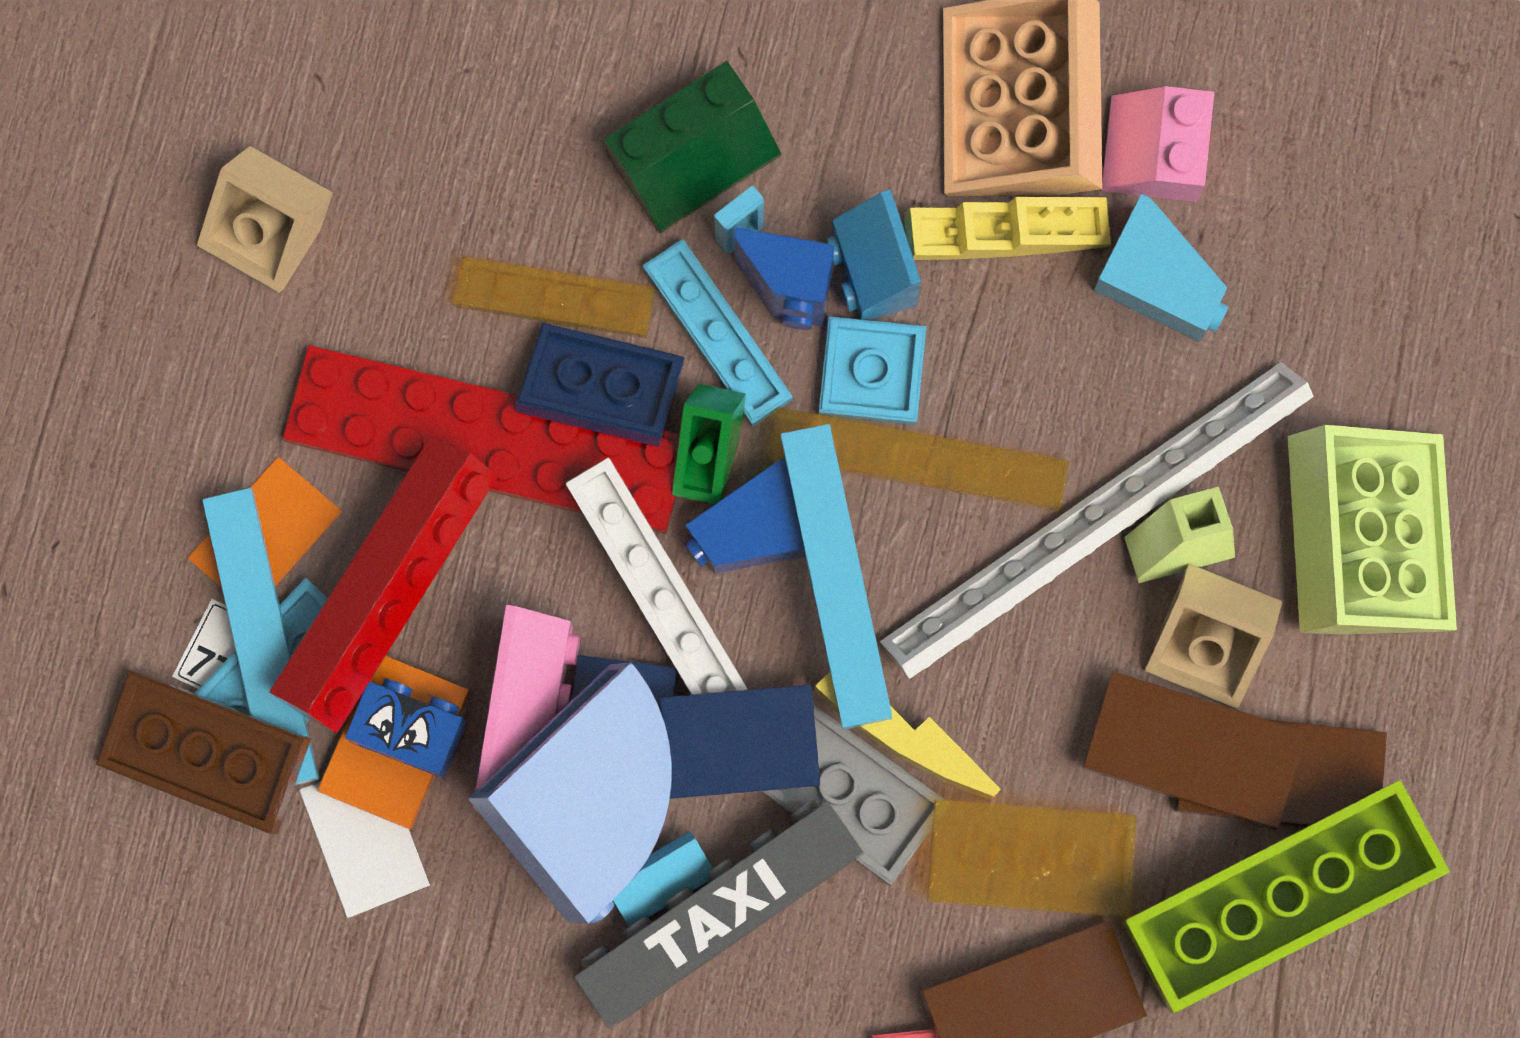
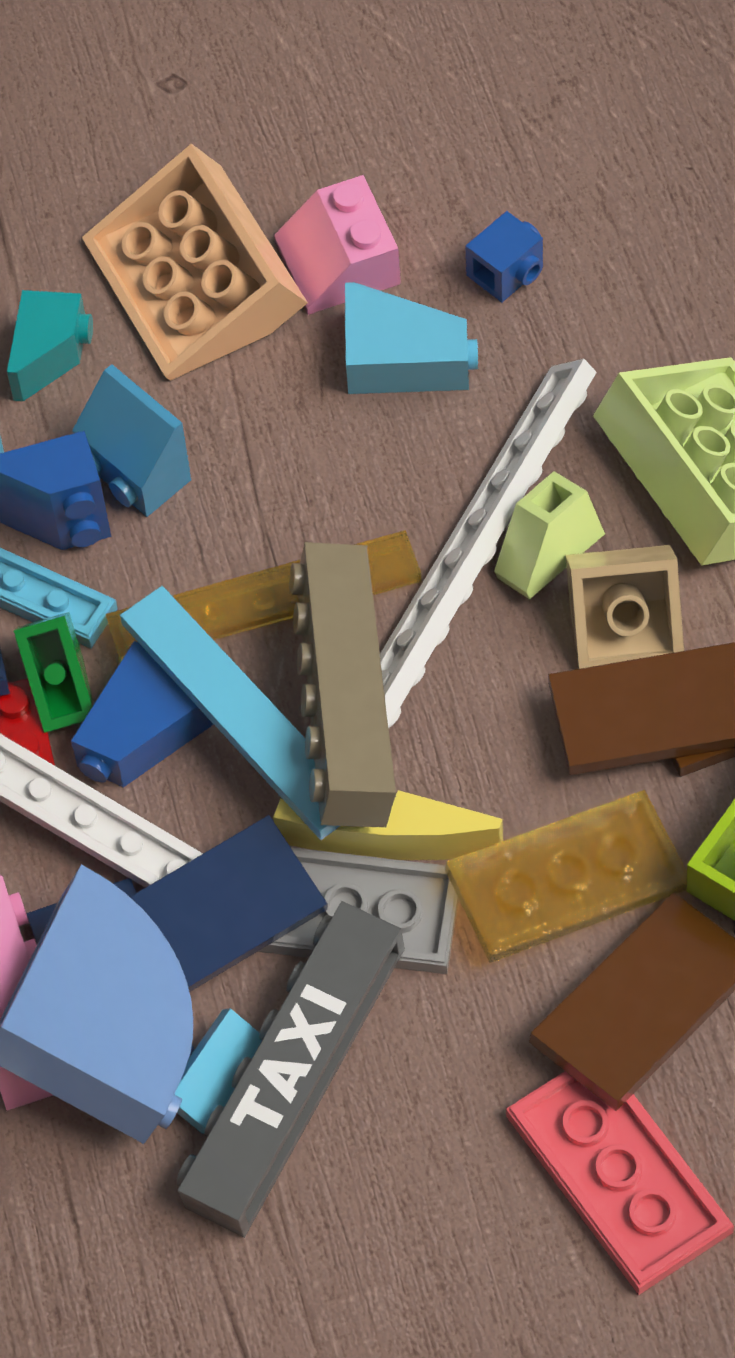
camera: 25 degrees left, 20 degrees down
(859, 106) = (46, 340): none -> teal slope
(872, 371) = (180, 544): medium azure tile -> none
(931, 602) = (343, 686): none -> dark tan brick
(1009, 228) = (247, 373): light yellow slope -> none
(1301, 231) = (505, 256): none -> blue brick

